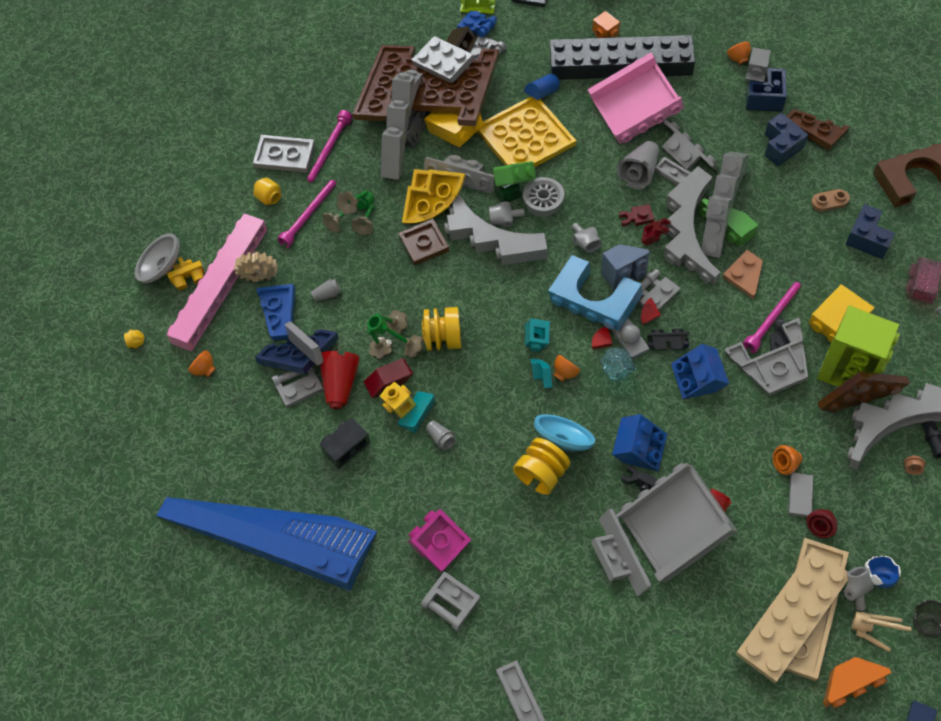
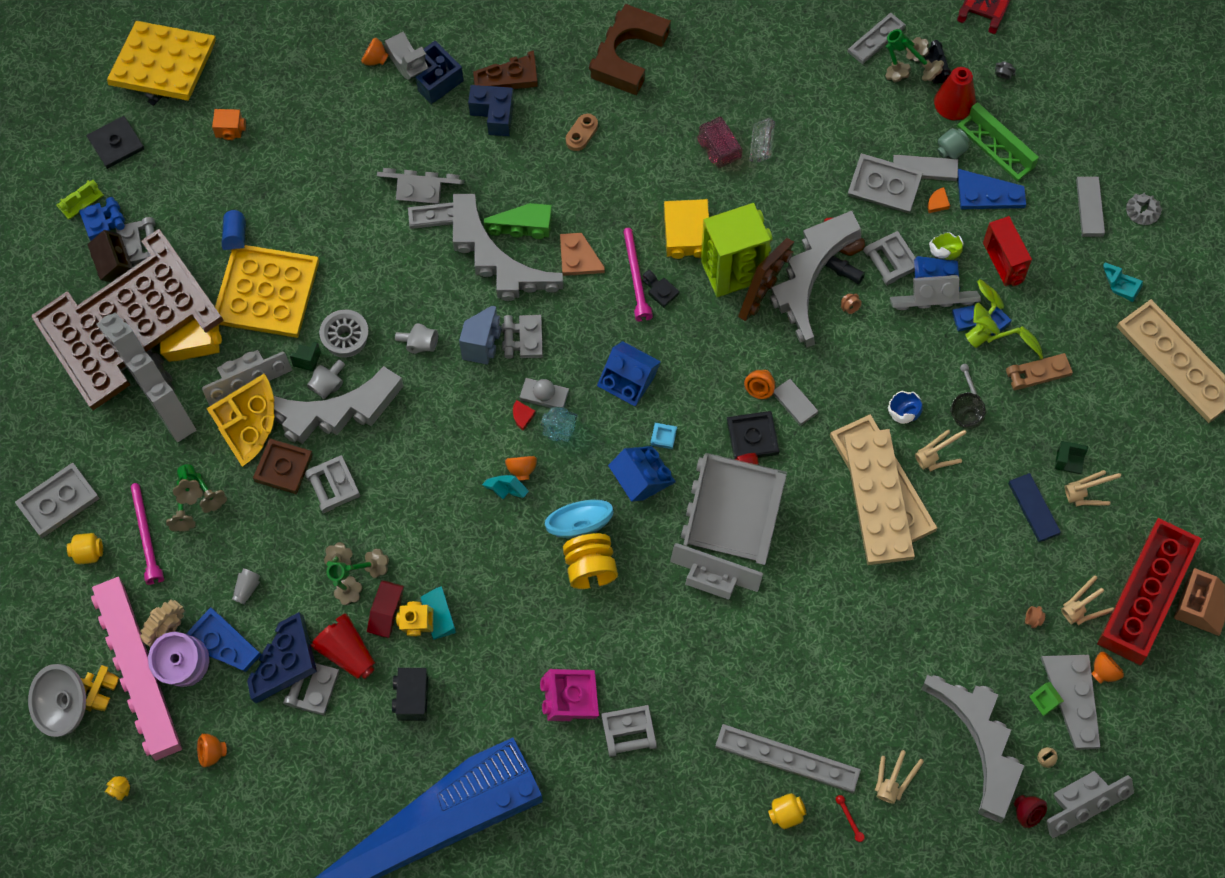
camera: 50 degrees left, 5 degrees up
(241, 295) = (178, 659): none -> lavender wheel
(304, 343) = (288, 646): light grey tile -> none
(344, 118) = (76, 418): dark pink piece -> none
(441, 329) = (385, 529): yellow wheel -> none
(442, 436) = (481, 613): light grey cone -> none
(443, 59) = (119, 282): light grey plate -> none
(446, 279) = (339, 480): none -> light grey plate
(514, 173) = (304, 334): bright green brick -> none
(537, 328) = (469, 459): teal brick -> none
(606, 56) = (274, 143): brick -> none
(609, 312) = (510, 386): dark azure arch -> none
(635, 99) = (333, 175): bright pink panel -> none
(639, 165) = (399, 234): light grey cone -> none
(639, 215) = (441, 278): dark red plate -> none
(641, 479) = (676, 499): black plate -> none
(649, 311) = (538, 357): red tile -> none
(654, 230) = (470, 283): dark red plate -> none
(676, 339) = (581, 361): black hinge -> none
(681, 434) = (663, 435): none -> medium azure tile
(721, 202) = (504, 206): light grey arch -> none
(746, 489) = (753, 434): none -> black plate
(777, 368) = (683, 314): light grey wing -> none
(822, 523) = (832, 409): dark red brick -> none
(852, 679) = (958, 506): orange slope -> none
(858, 585) = (901, 433): light grey piece -> none
(867, 236) = (641, 140): dark blue brick -> none

